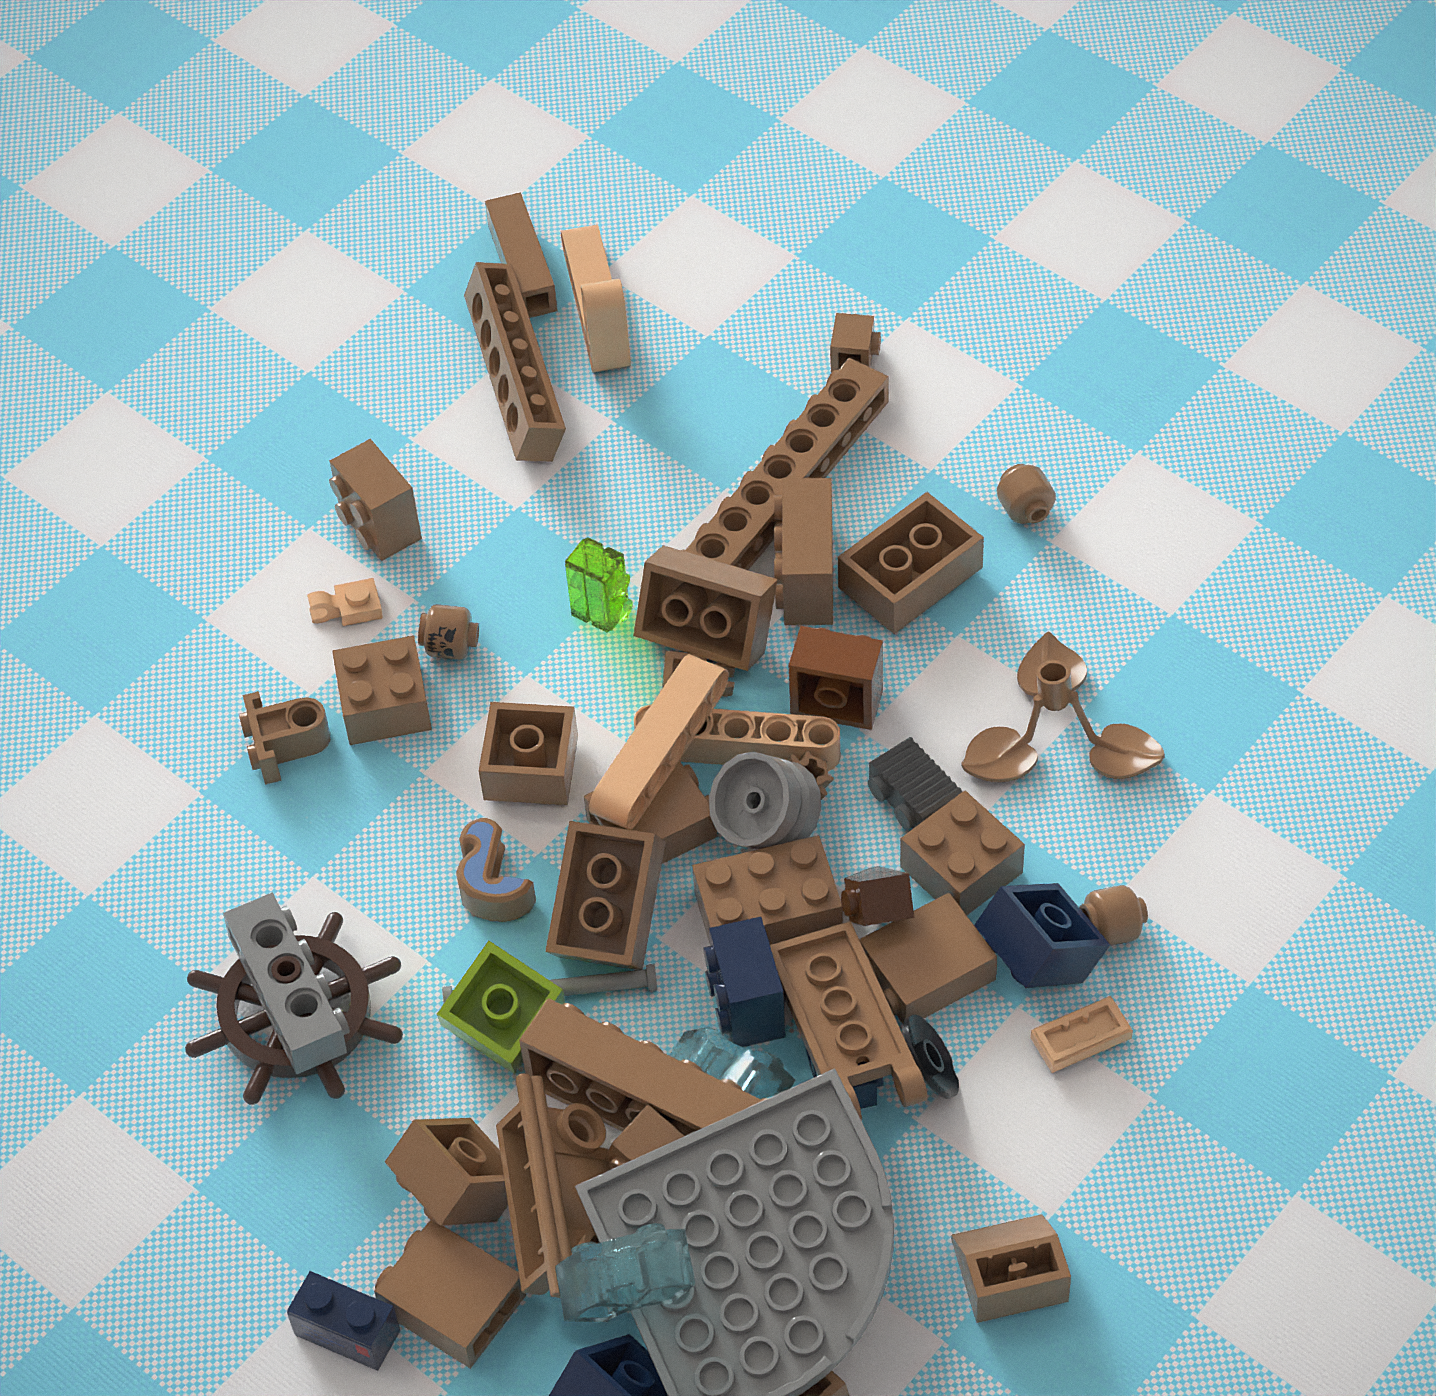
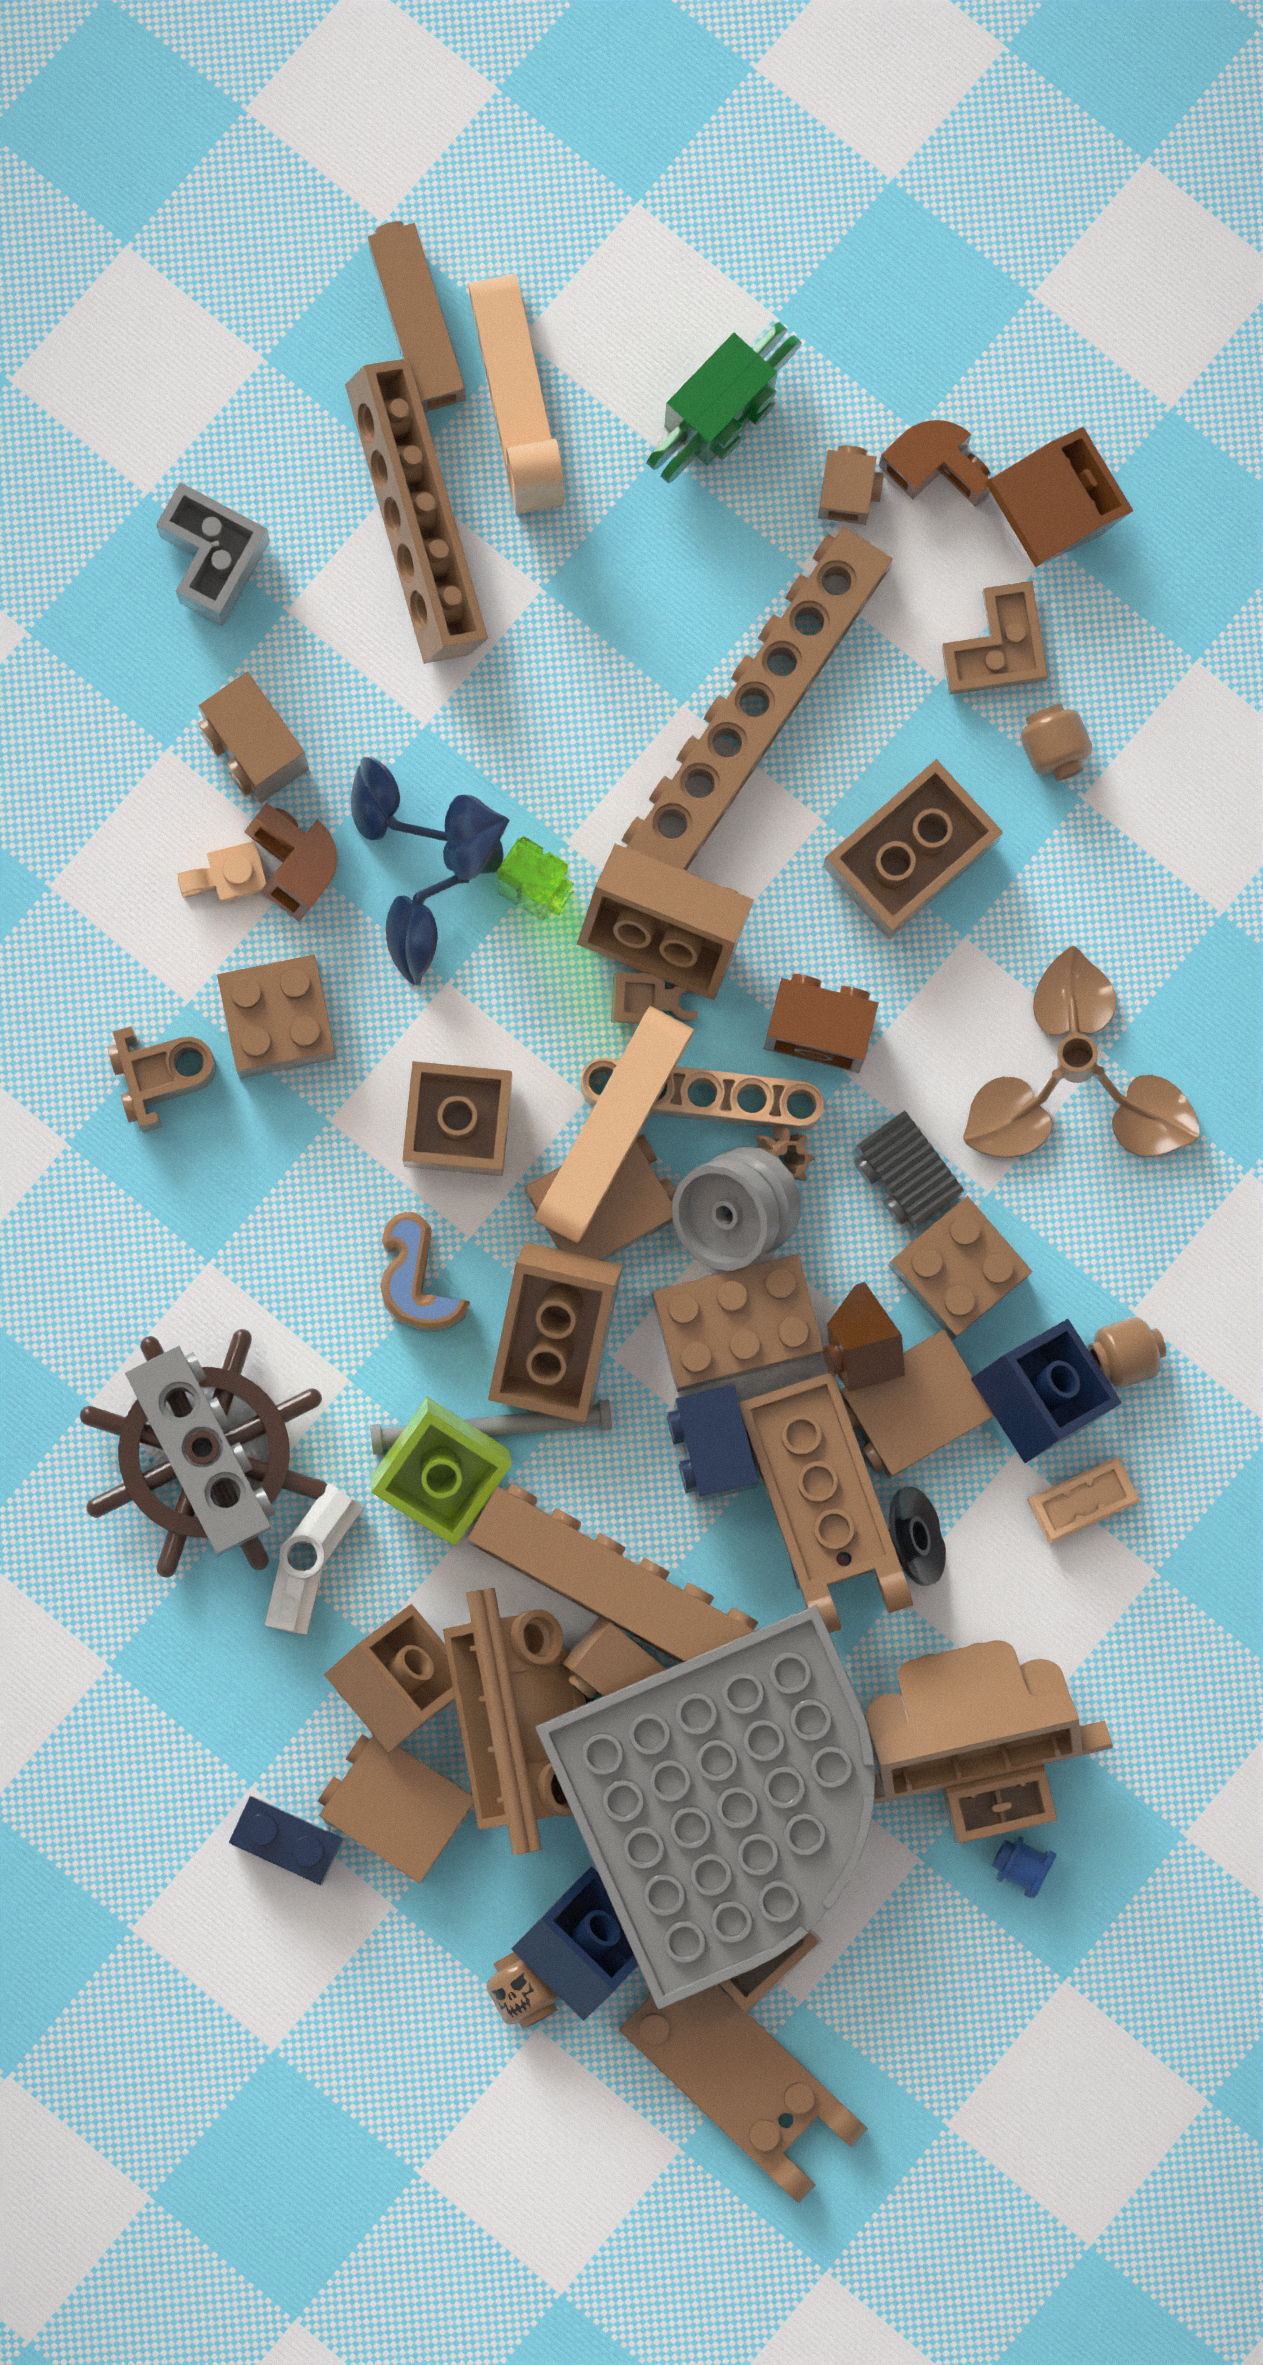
camera: 10 degrees left, 30 degrees up
(354, 389) = (223, 546): none -> light grey brick
(370, 1110) = (296, 1590): none -> white piece
(404, 581) = (306, 859): none -> dark orange brick
(447, 632) = (352, 933): medium nougat head -> none
(542, 574) = (471, 849): none -> dark blue plant
(624, 1274) = (593, 1842): clear light blue brick -> none
(752, 285) = (721, 400): none -> green brick
(753, 1070) = (693, 1550): clear light blue brick -> none
(806, 557) = (785, 834): medium nougat brick -> none
(920, 321) = (931, 450): none -> dark orange brick
(983, 444) = (1011, 651): none -> medium nougat plate
(989, 1198) = (973, 1719): none -> medium nougat brick
(1020, 336) = (1059, 497): none -> dark orange slope
(1042, 1335) = (1023, 1865): none -> blue brick

